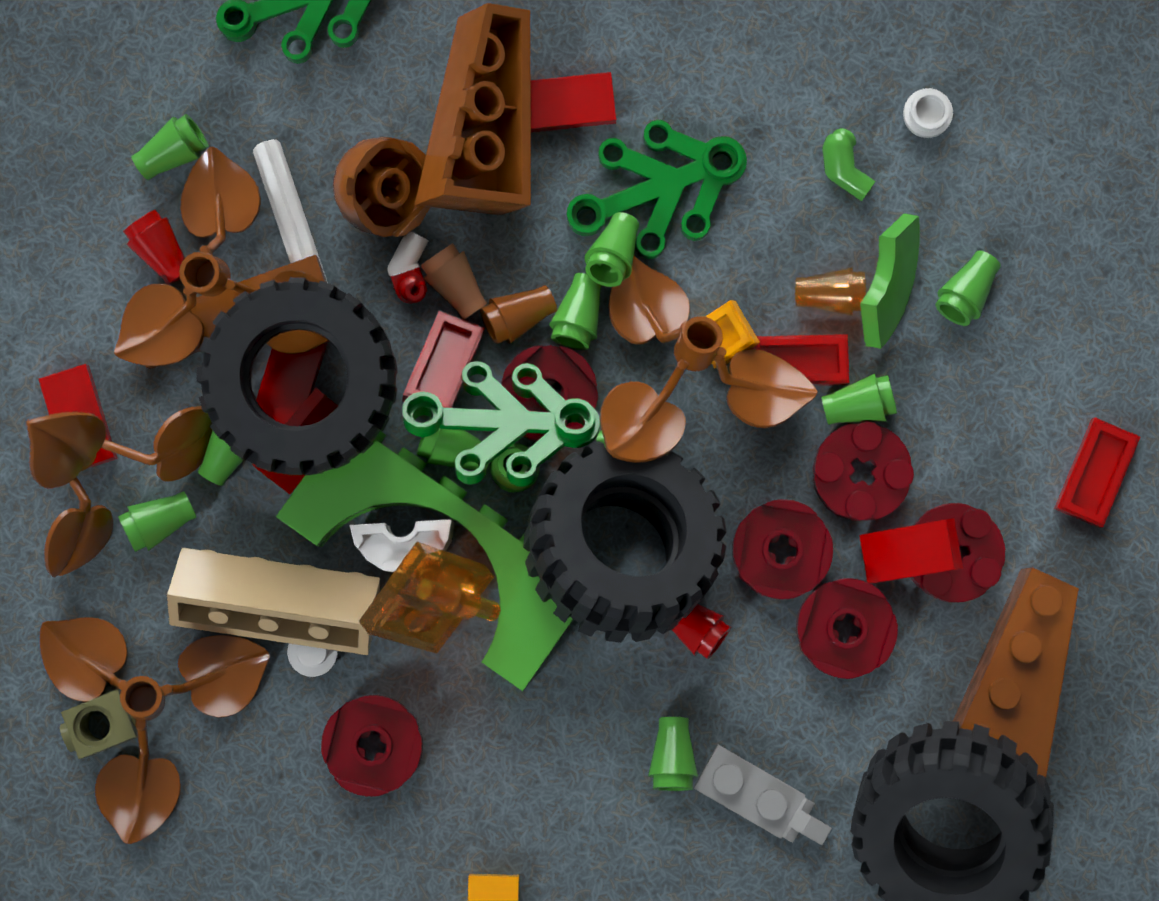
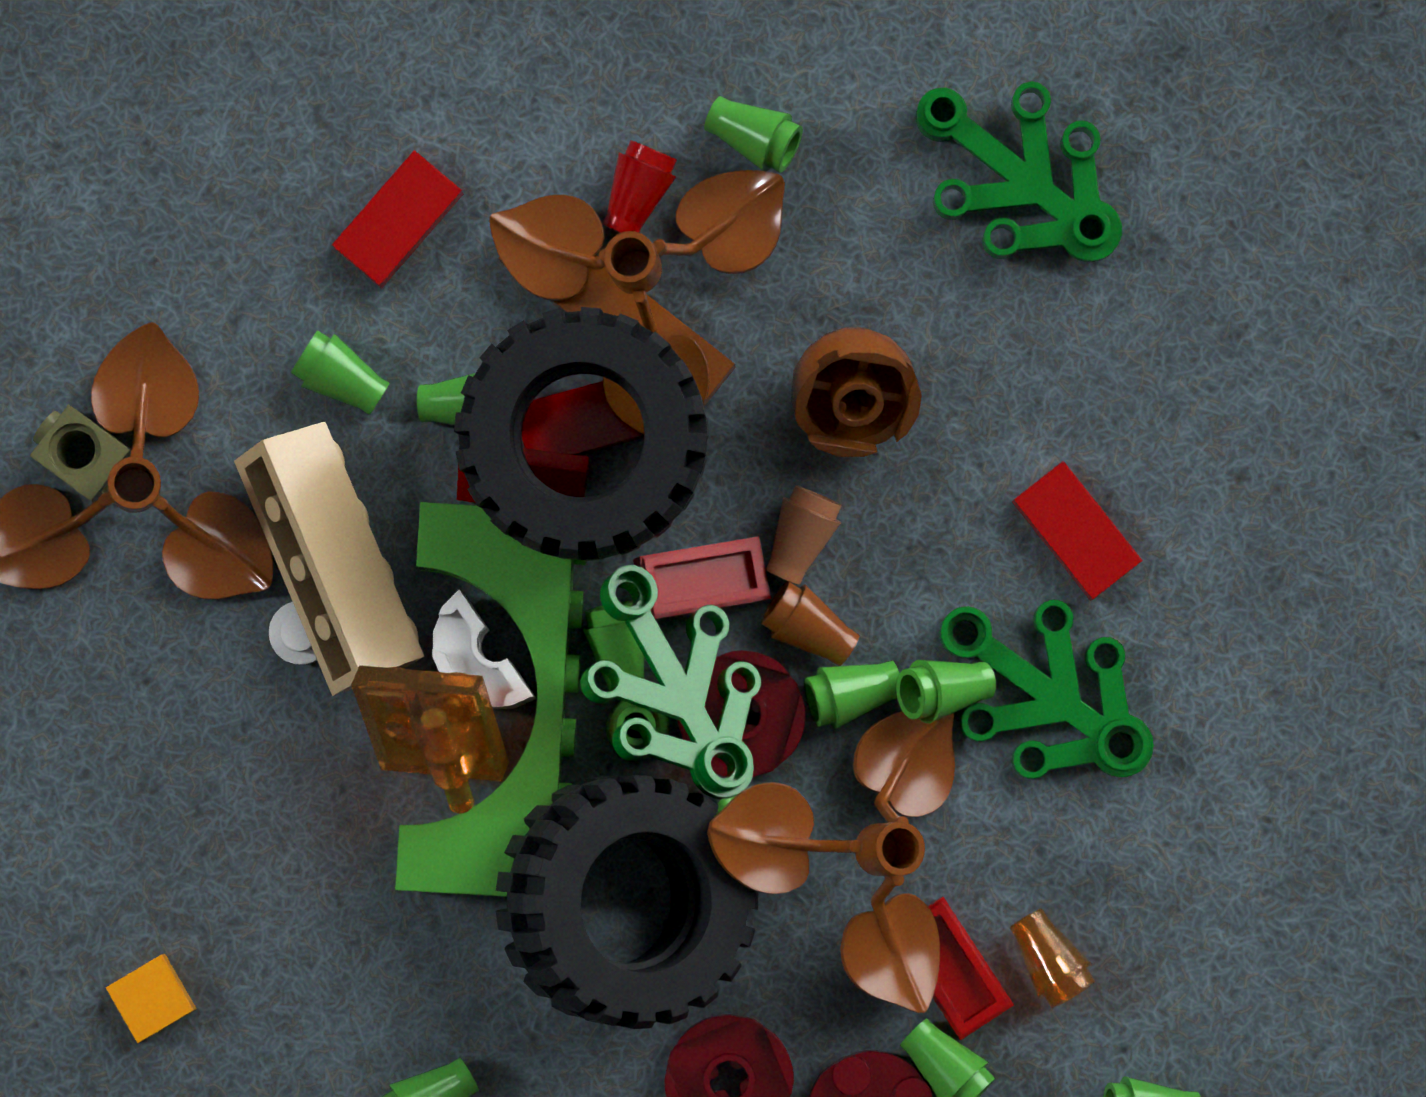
camera: 55 degrees right, 0 degrees up
(69, 444) = (352, 232): dark orange plant -> none
(284, 201) = (774, 293): white axle -> none
(347, 760) = (206, 744): dark red plate -> none
(405, 271) = (779, 473): arm -> none
(483, 117) = (1000, 452): dark orange wedge -> none
(702, 631) = (584, 1047): red cone -> none
(735, 330) = (938, 873): light orange tile -> none
(840, 164) = (1200, 879): bright green arm -> none
(892, 282) = (1103, 1019): bright green tile -> none
(927, 113) = (1320, 942): white plate -> none

